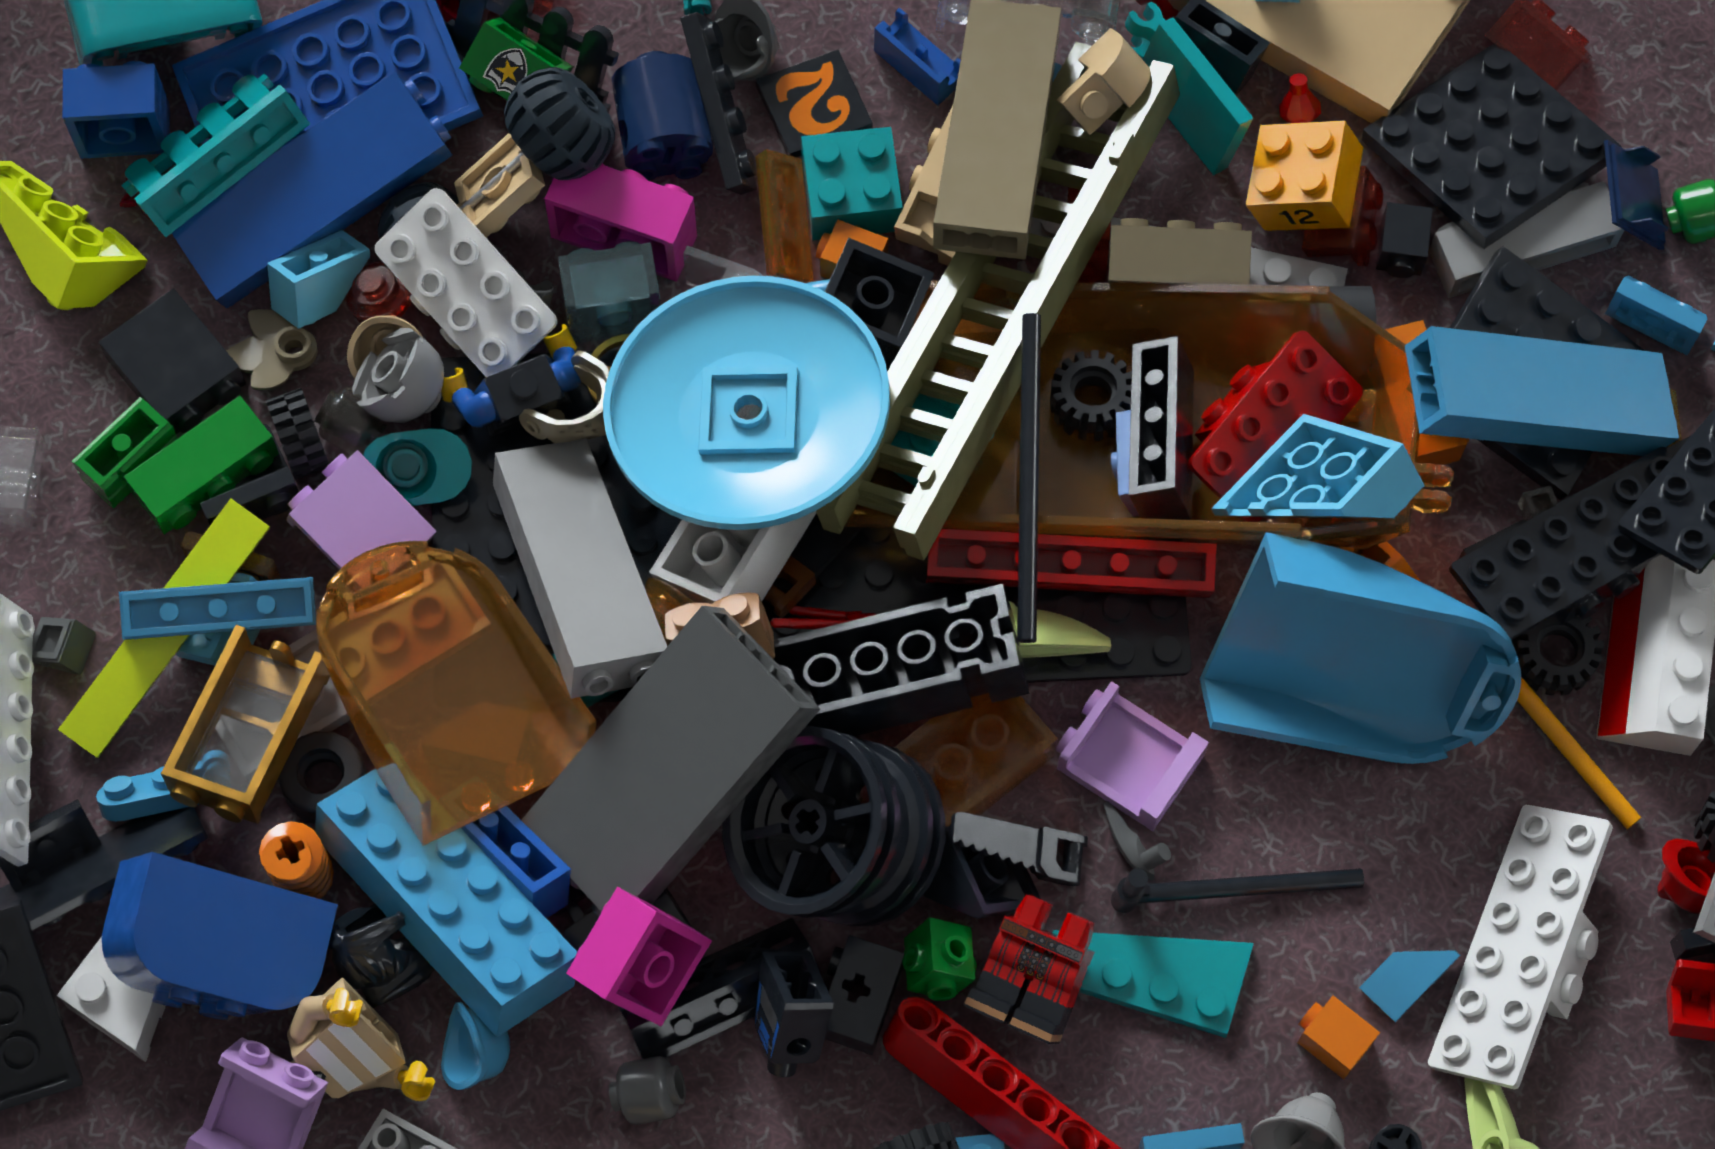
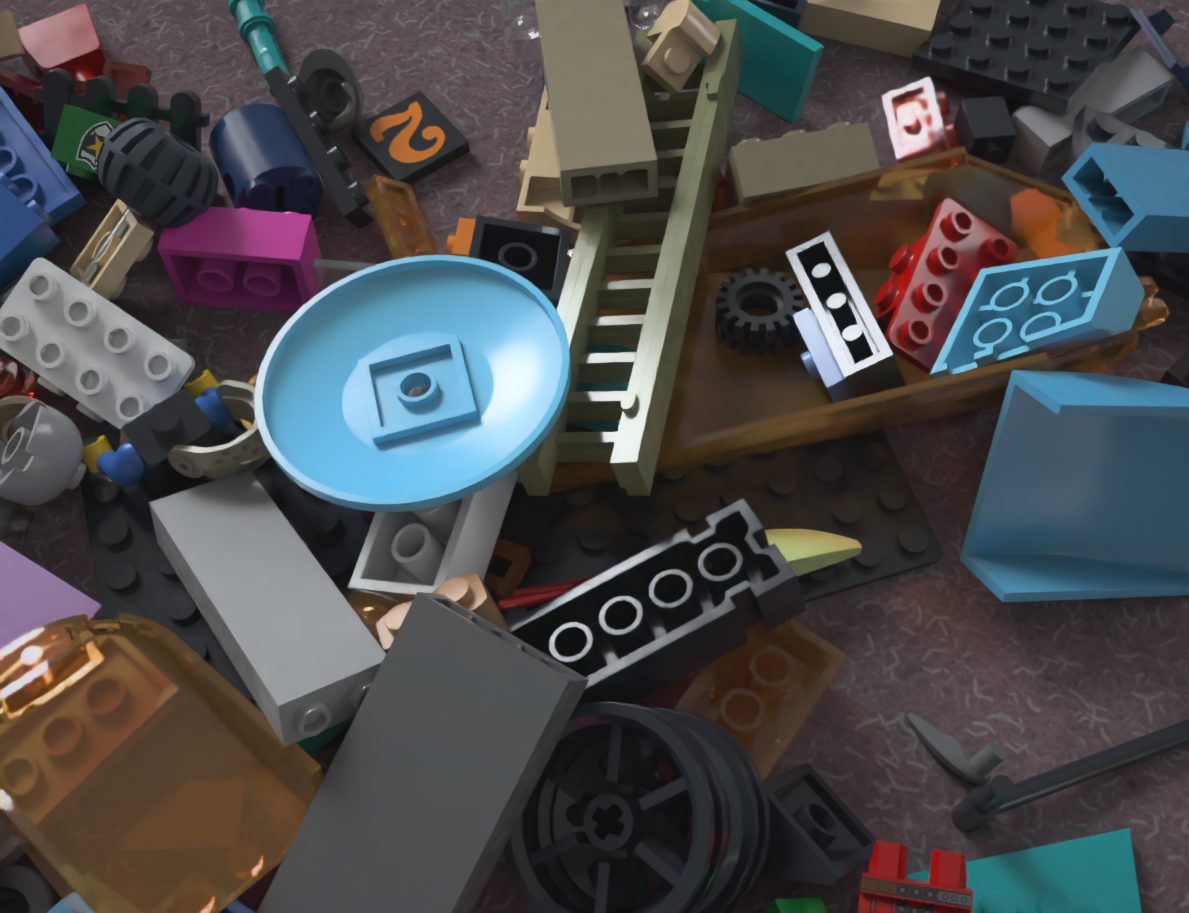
camera: 15 degrees left, 10 degrees down
(422, 464) = (74, 538): teal piece -> none
(608, 290) = (240, 321): clear light blue brick -> none
(851, 180) = (461, 182): teal brick -> none
(916, 58) = (495, 85): blue hinge -> none
(1022, 845) = (844, 785): piece -> none
(1029, 478) = (737, 393): black piece -> none
(1076, 563) = (798, 470): red brick -> none
(1129, 756) = (920, 660): lavender panel -> none
(1299, 102) = (846, 48): red rock -> none
(1304, 176) = (882, 88): light orange brick -> none

